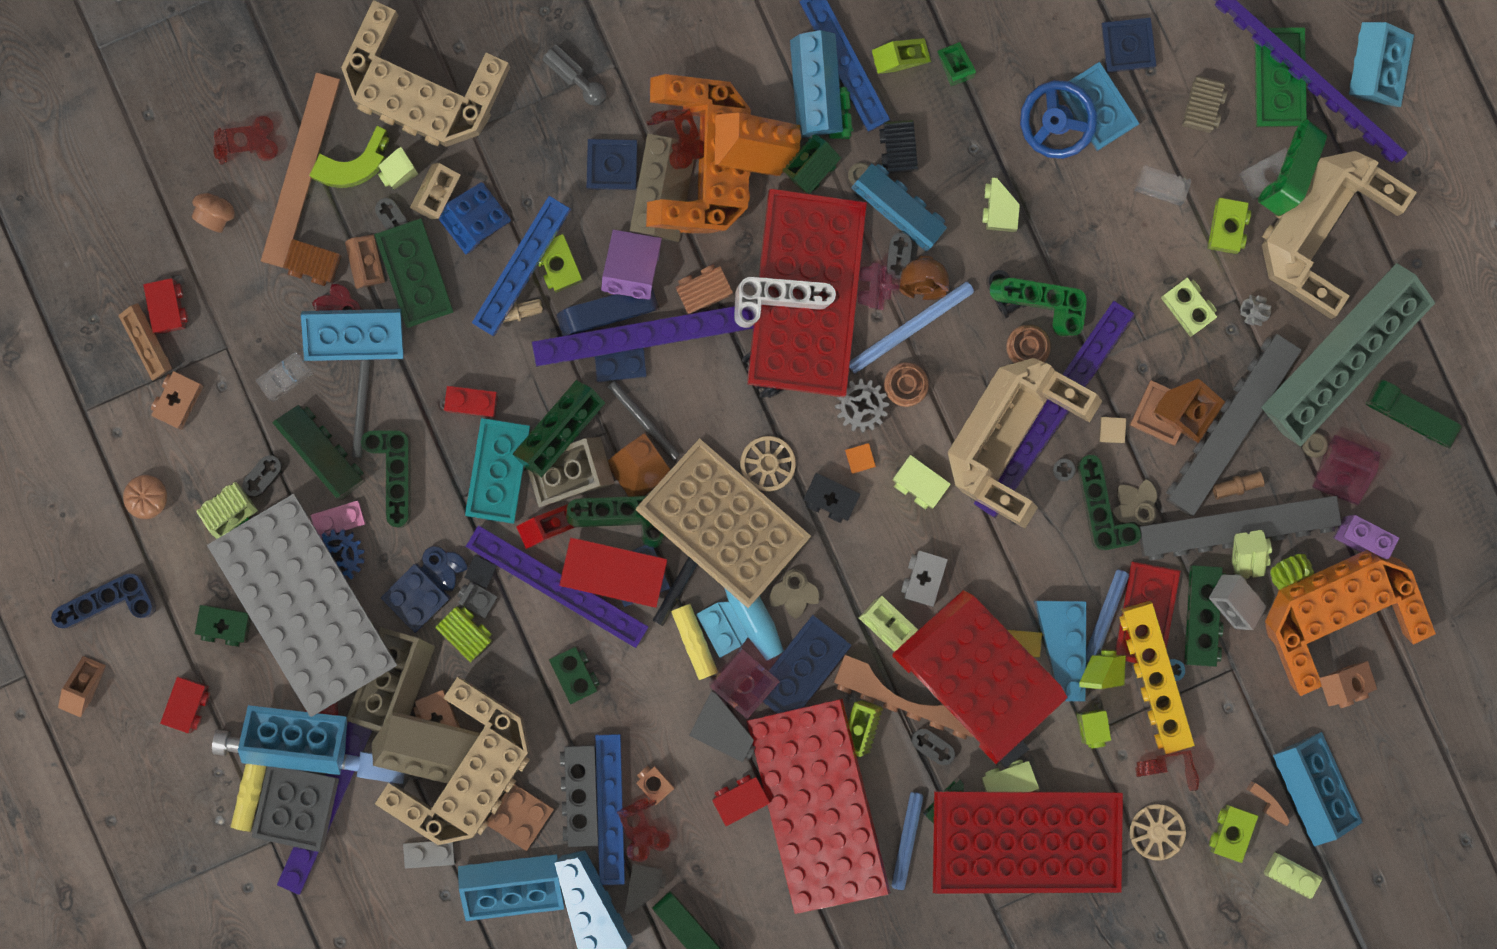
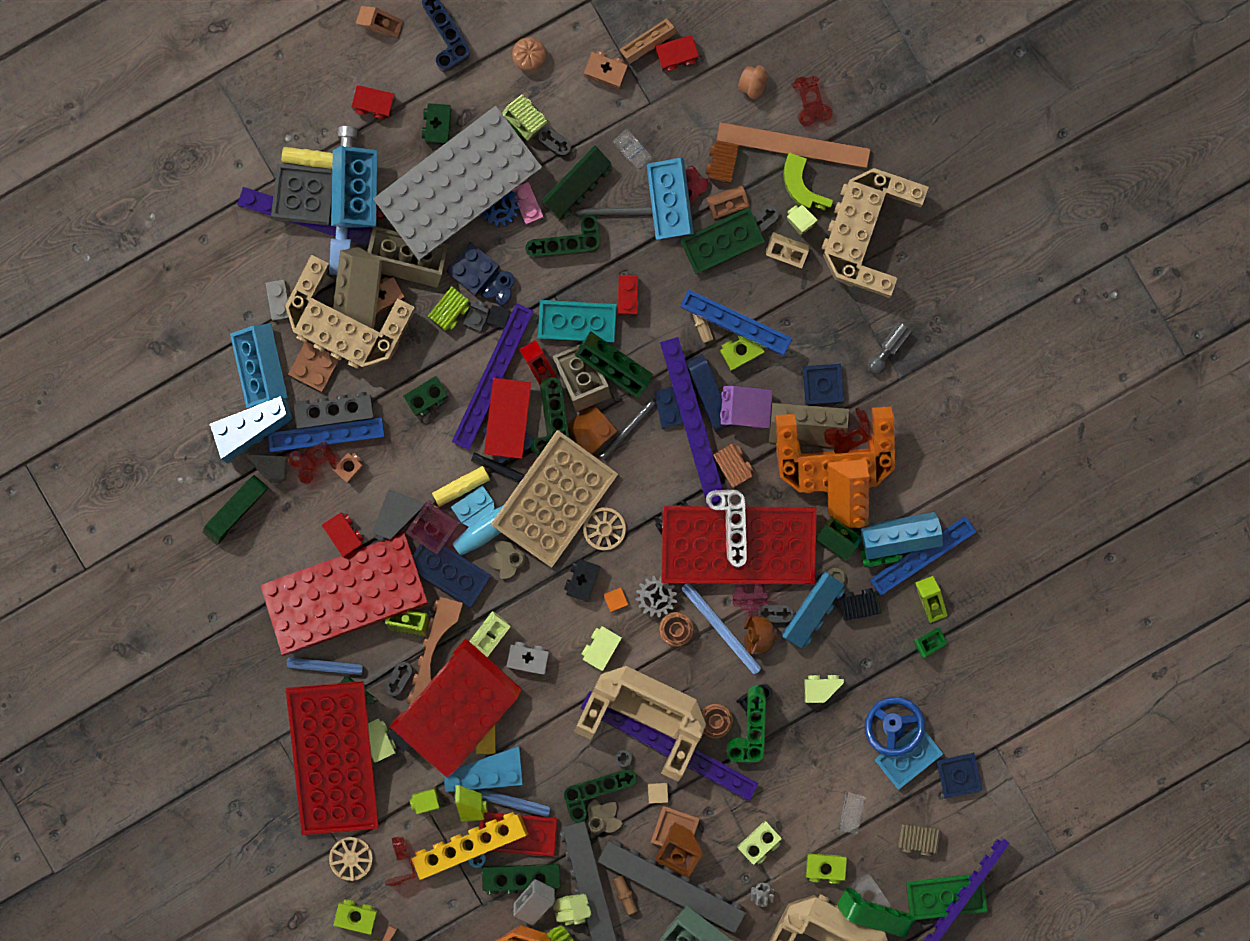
camera: 85 degrees right, 0 degrees up
(473, 217) = (770, 282): blue bracket -> none

